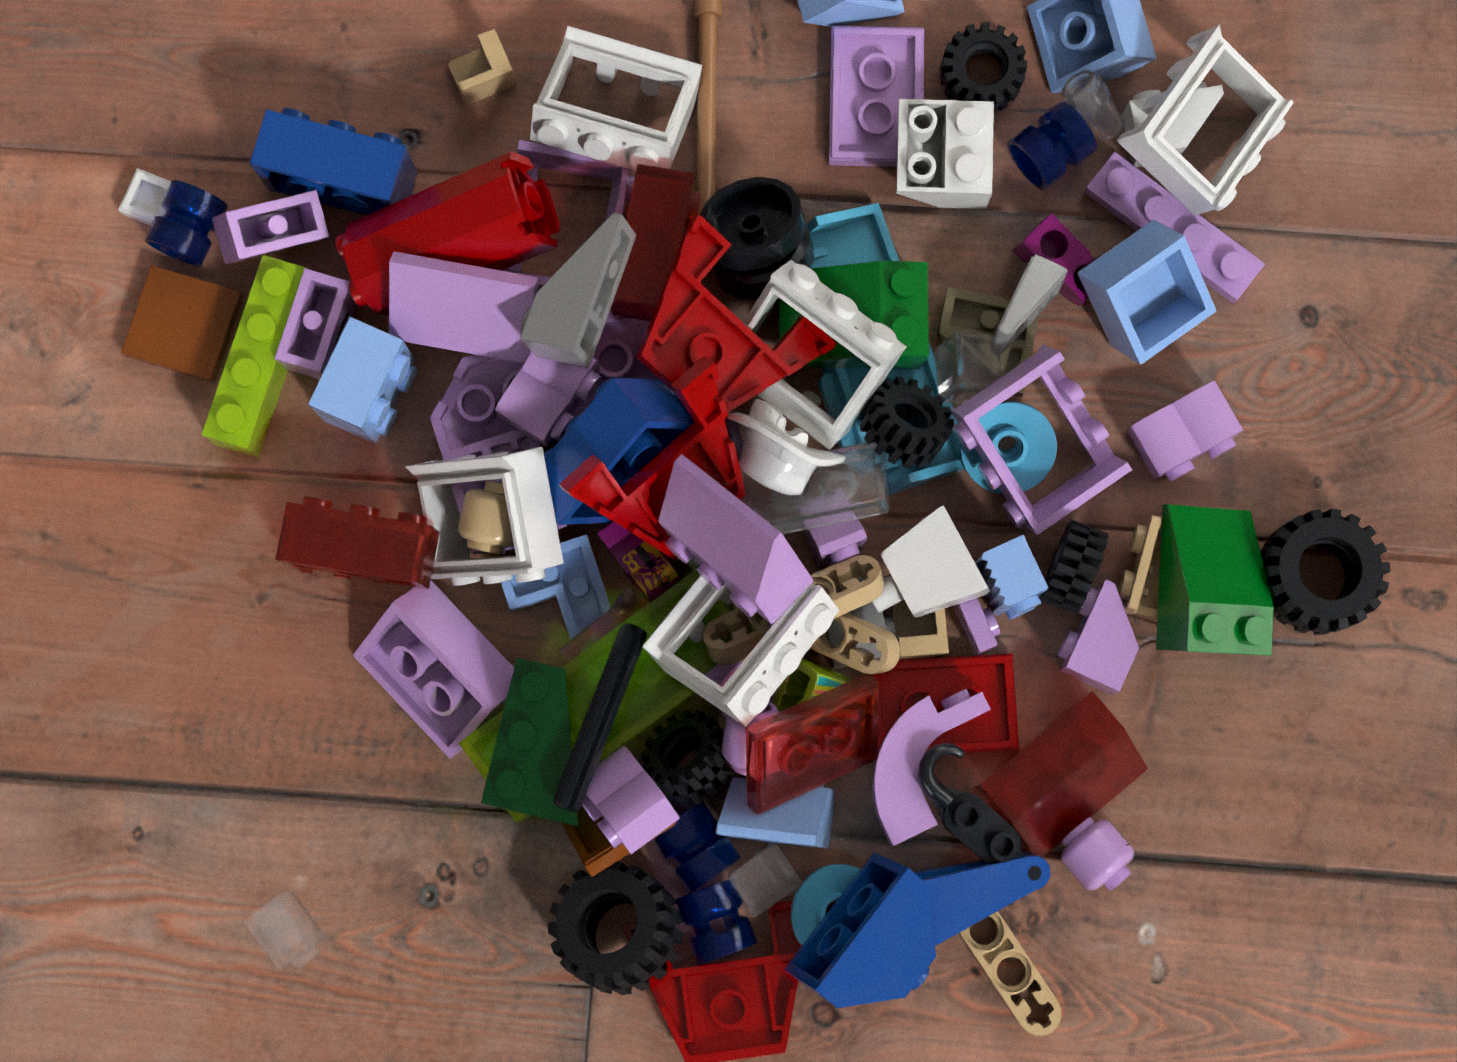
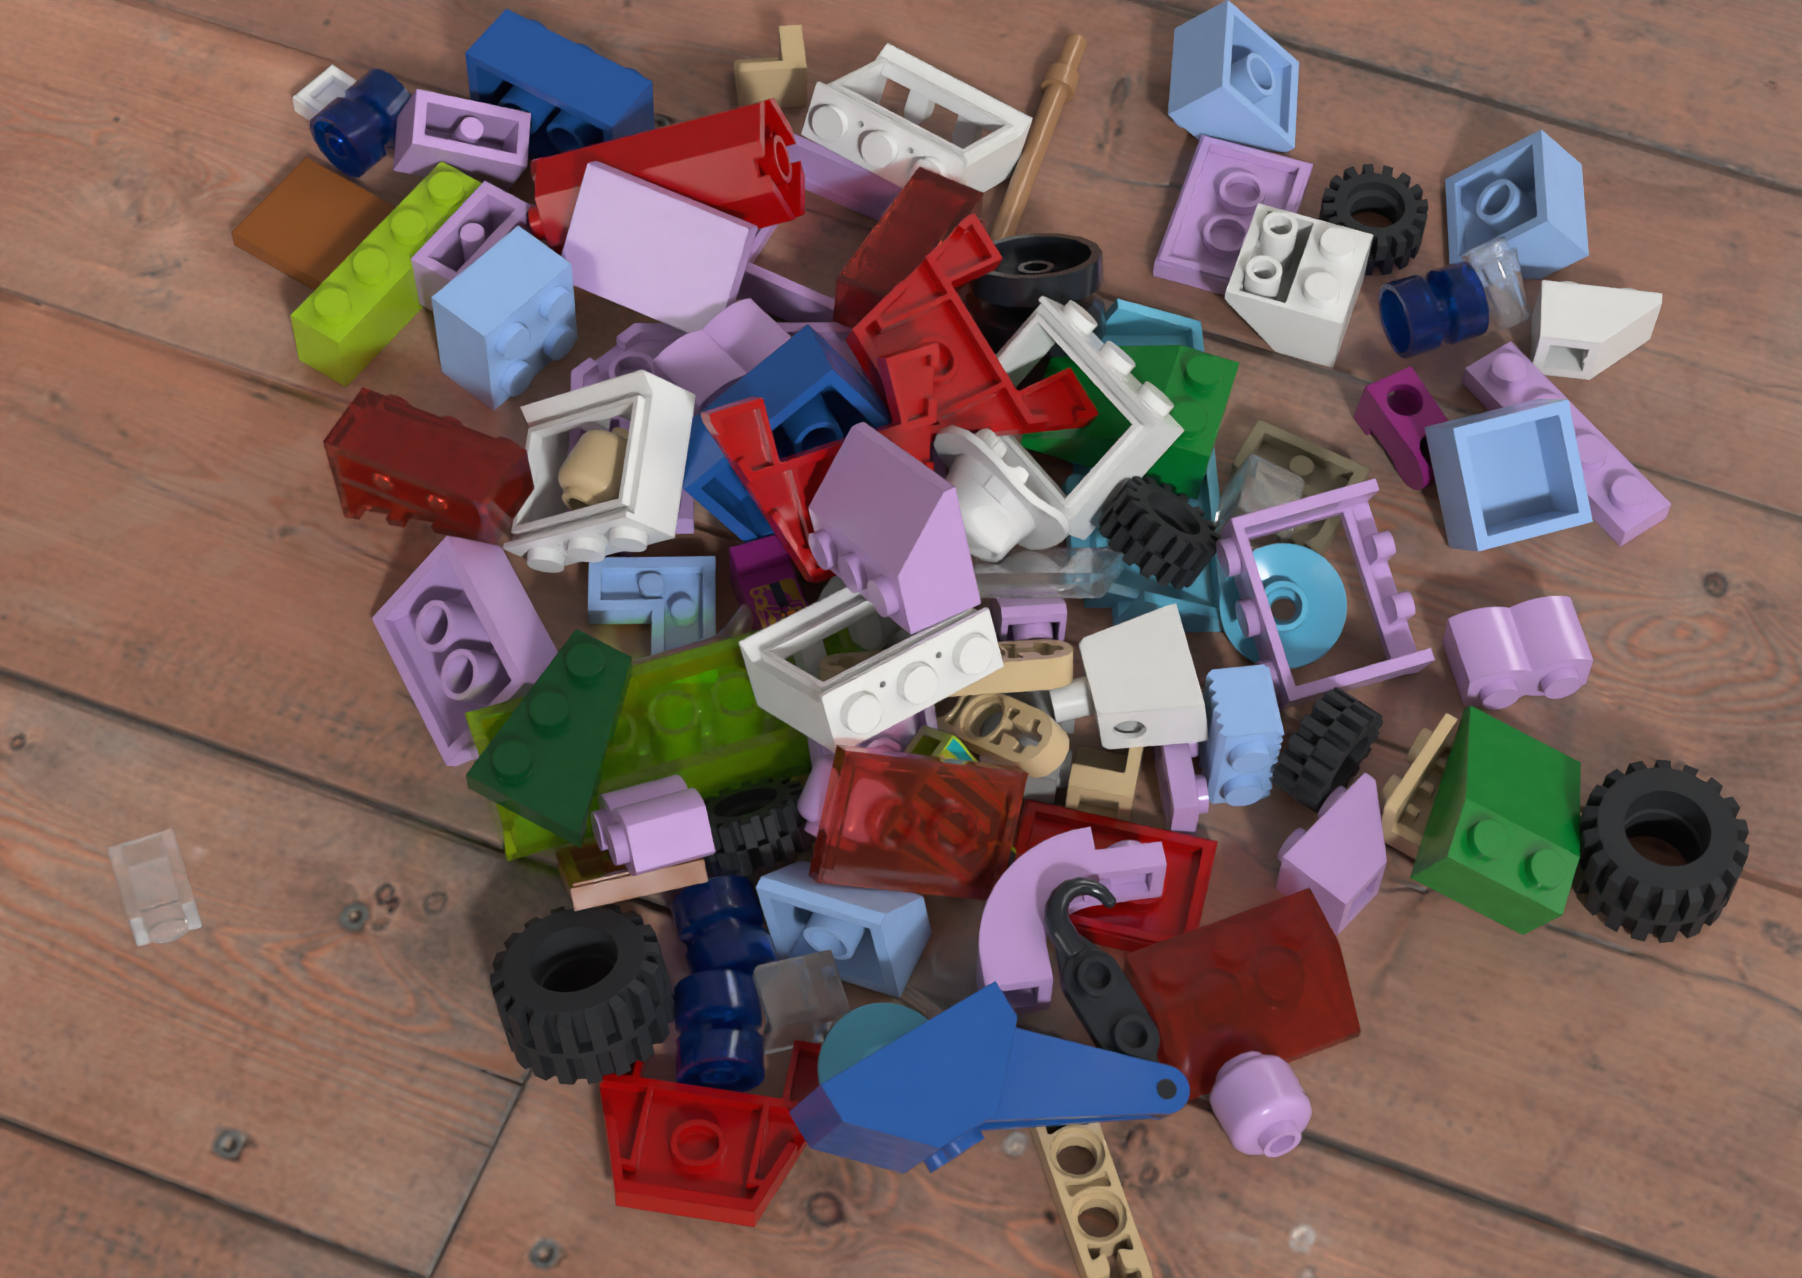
camera: 15 degrees right, 25 degrees down
(577, 299) = (799, 257): light grey slope -> none
(600, 718) = (652, 721): black axle -> none
(1034, 292) = (1353, 445): light grey slope -> none
(1166, 163) = (1581, 360): white window -> none

